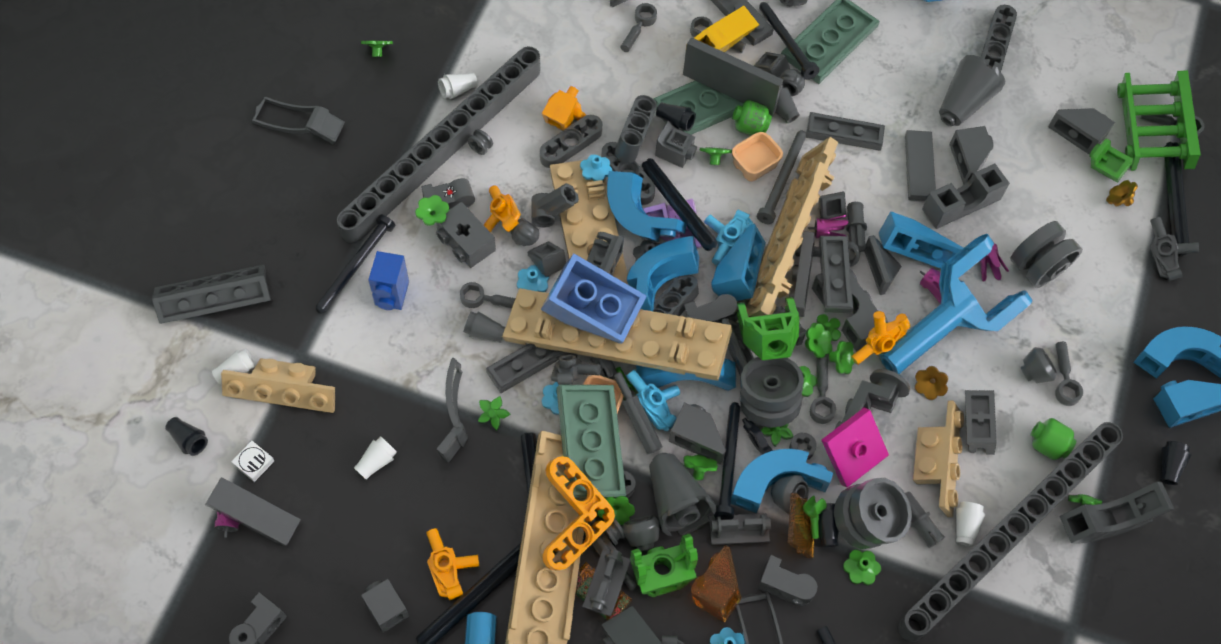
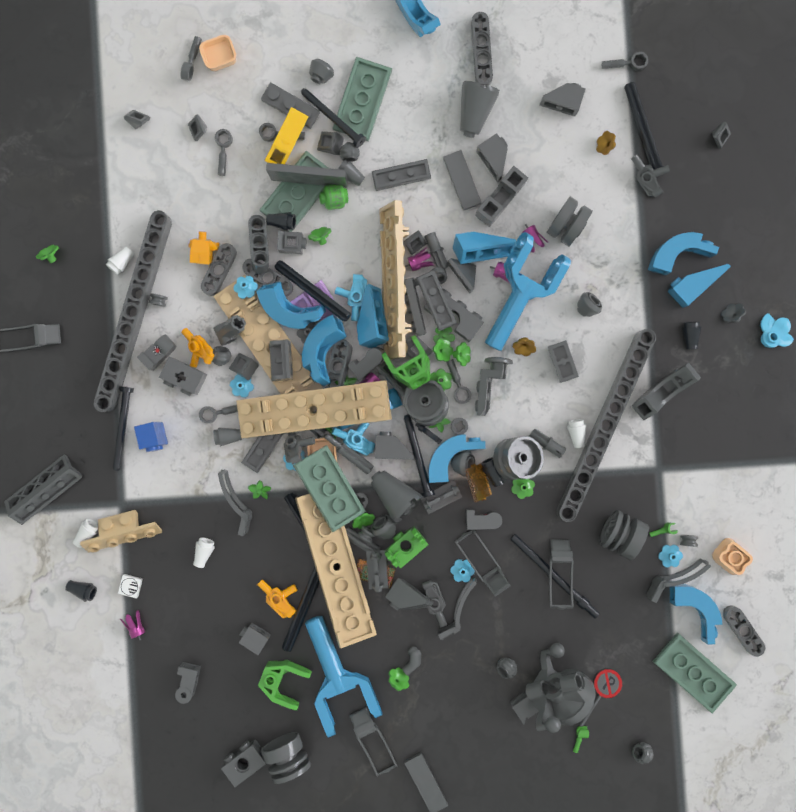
camera: 20 degrees left, 25 degrees up
(252, 512) = (148, 621): dark grey tile -> none
(432, 210) = (149, 370): bright green plant -> none
(585, 509) = (346, 536): light orange beam -> none
(593, 300) = (290, 399): medium blue slope -> none
(700, 465) = (401, 467): bright green plant -> none
(718, 587) = (444, 540): clear orange slope -> none
(756, 156) = (349, 225): light nougat piece -> none
(767, 215) = (373, 268): dark grey bar -> none
(813, 510) = (482, 471): bright green hand -> none
(855, 447) = (492, 416): dark pink plate -> none
(882, 336) = (483, 334): light orange piece -> none
(938, 457) = (545, 396): tan bracket -> none
(1053, 439) = (612, 353): bright green head -> none
(1065, 369) = (605, 296): dark grey piece -> none
(1084, 499) = (644, 386): bright green plant -> none
(1109, 161) = (590, 120): bright green bracket -> none
(1181, 108) = (635, 71): bright green fence -> none

